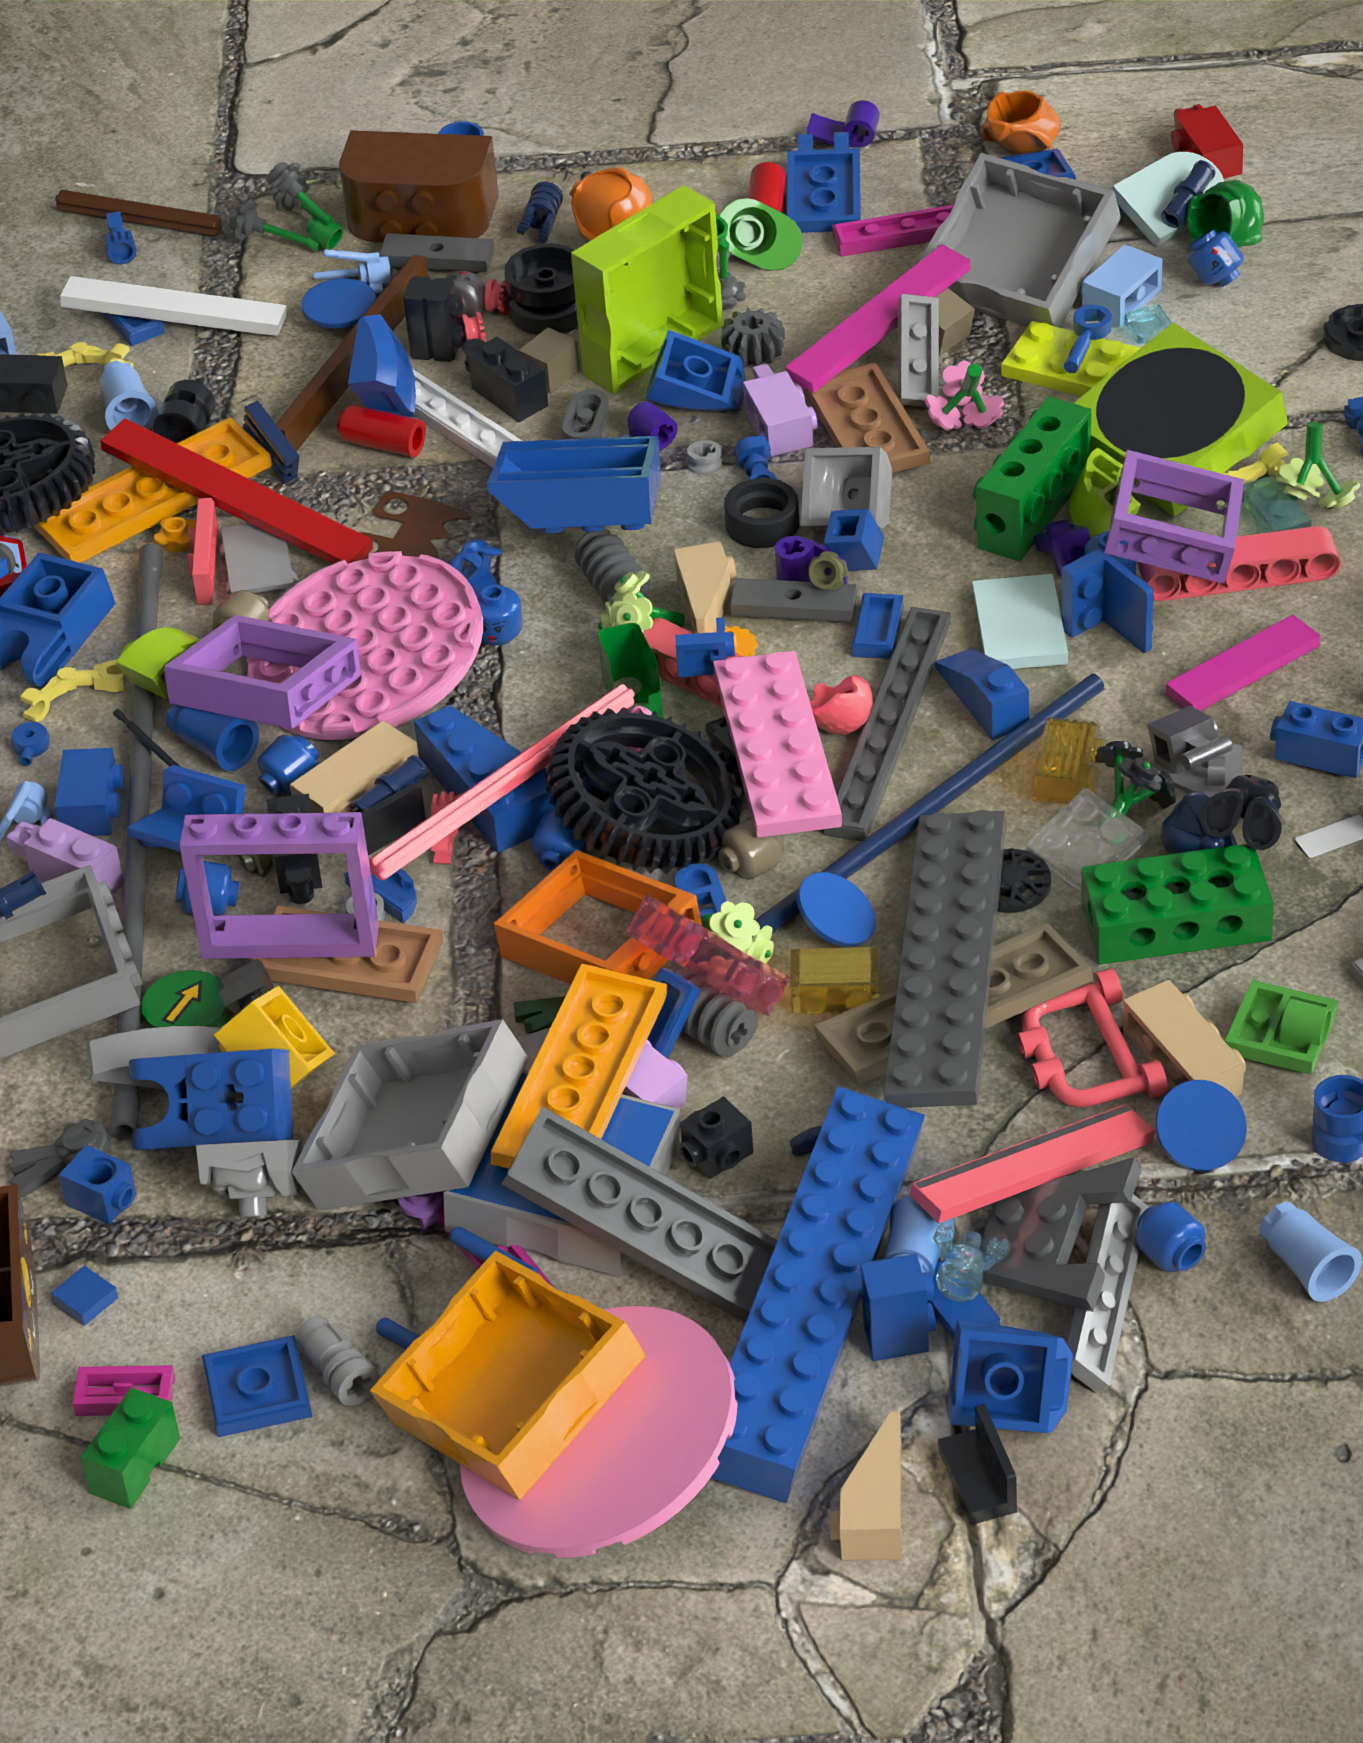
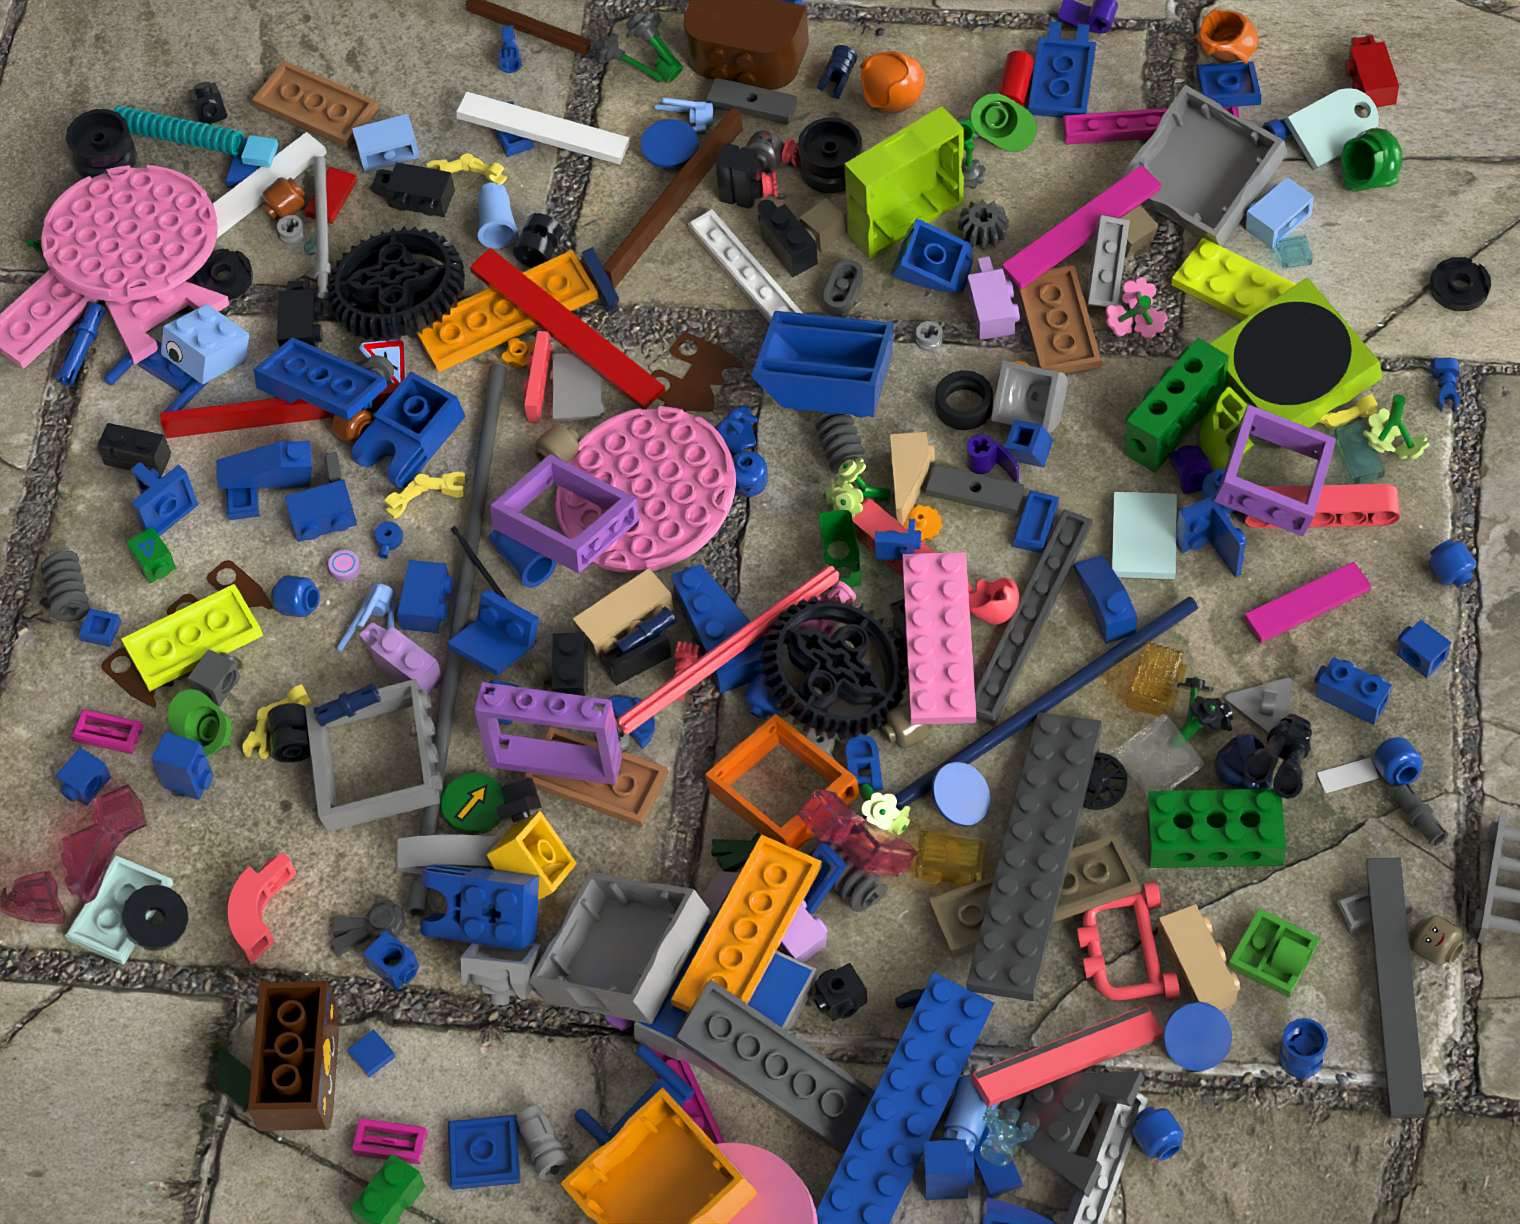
camera: 10 degrees right, 15 degrees up
(146, 657) = (491, 480): lime brick -> none
(286, 762) = (574, 593): blue head -> none
(381, 368) = (692, 227): blue slope -> none
(381, 430) = (686, 276): red brick -> none
(649, 420) = (889, 305): dark purple panel -> none
(753, 456) = (966, 341): blue piece -> none
(817, 571) = (1000, 480): olive plate -> none
(1087, 332) = (1242, 260): blue piece -> none
(1186, 740) = (1250, 676): flat silver brick -> none
(1194, 184) = (1346, 130): dark blue pin -> none
(1215, 258) = (1357, 198): blue head -> none
(1311, 1251) = (1257, 1162): light blue plant -> none

